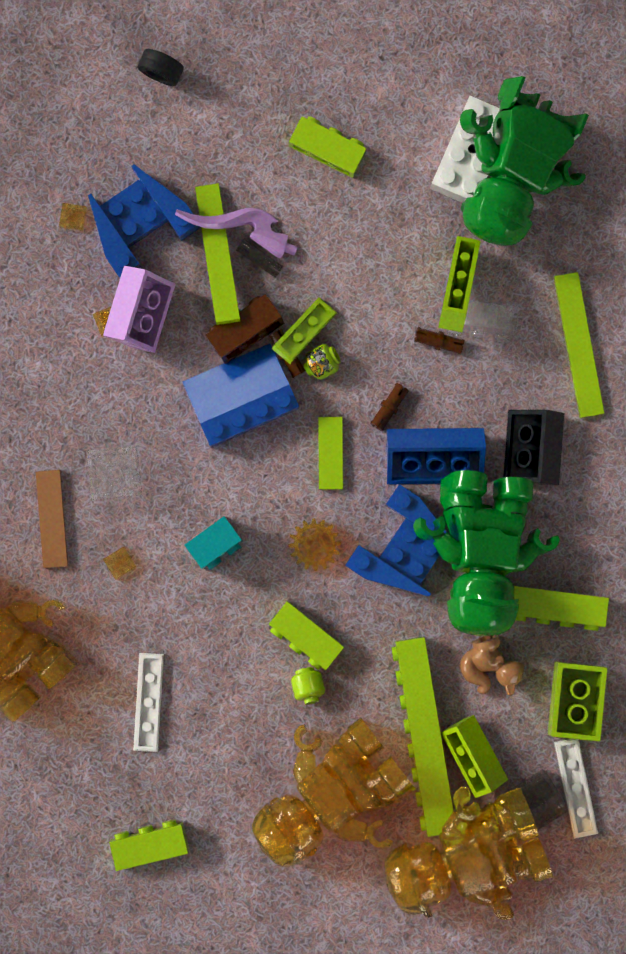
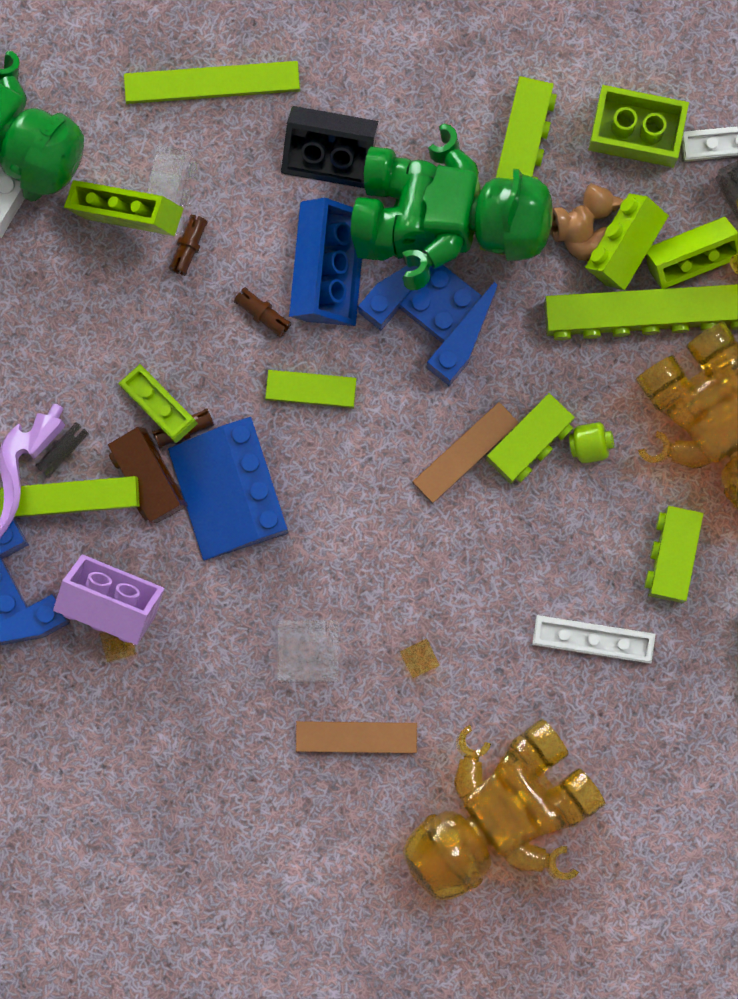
camera: 80 degrees left, 5 degrees down
(214, 543) = (407, 535): teal brick -> none
(222, 761) = (674, 554): none -> lime brick
(290, 584) = (465, 452): none -> medium nougat tile
(322, 361) = (198, 386): head -> none
(330, 550) = (408, 411): clear yellow gear -> none
(477, 700) = (626, 241): none -> lime brick

